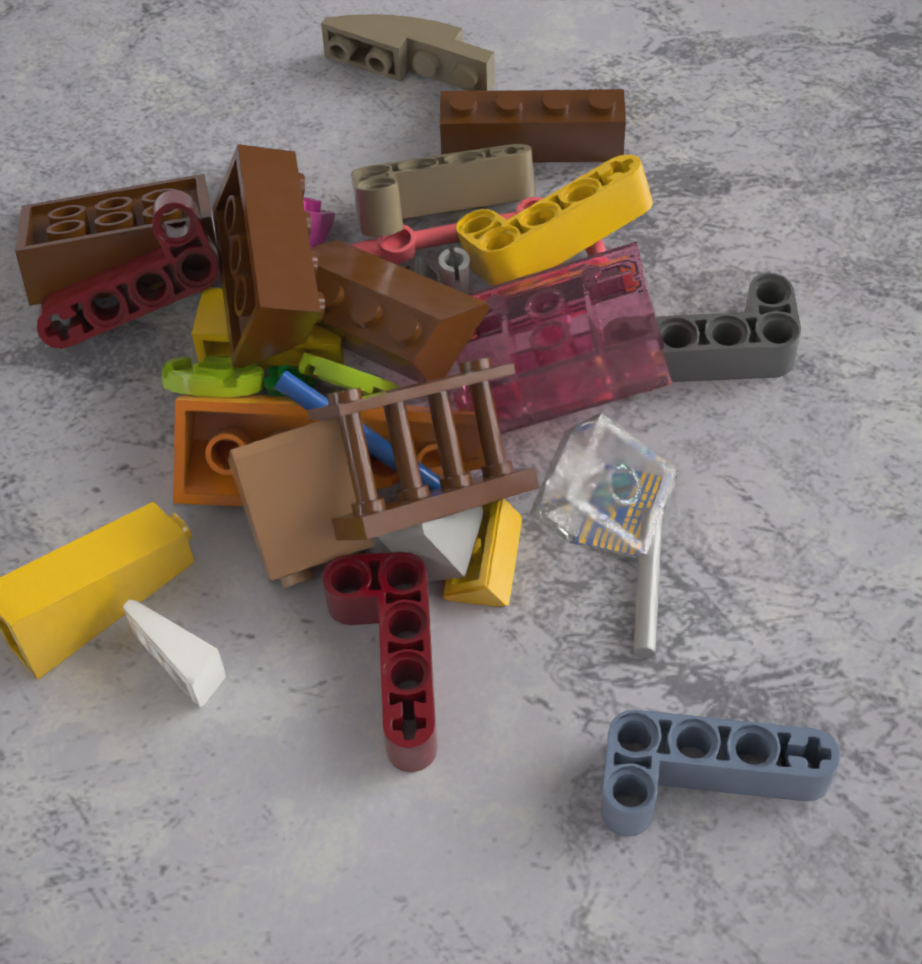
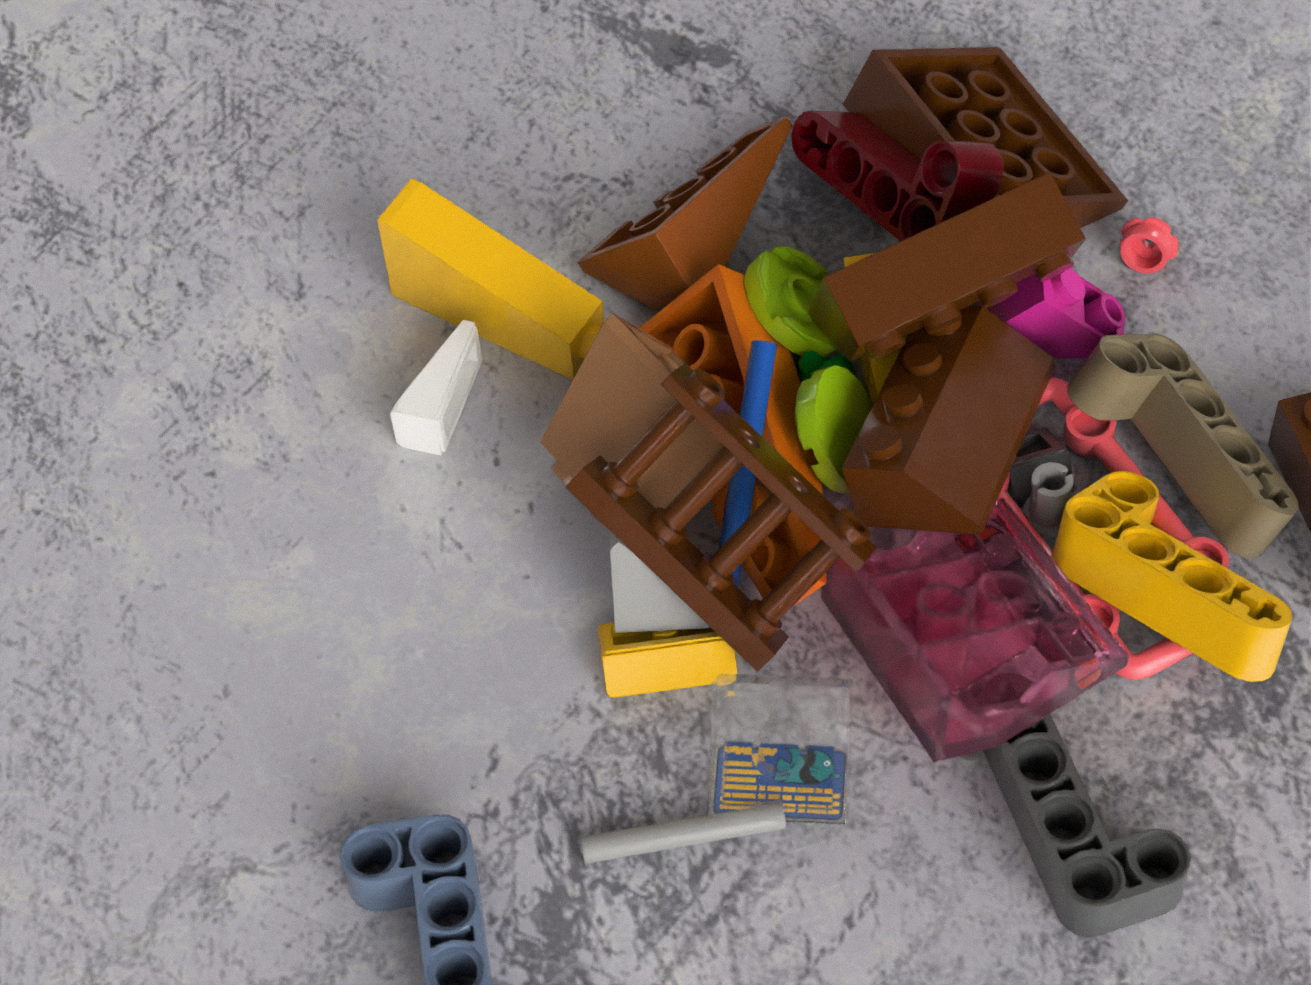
camera: 75 degrees right, 0 degrees up
(92, 435) = (692, 224): none -> dark orange wedge
(400, 659) = (558, 599): dark red beam -> none

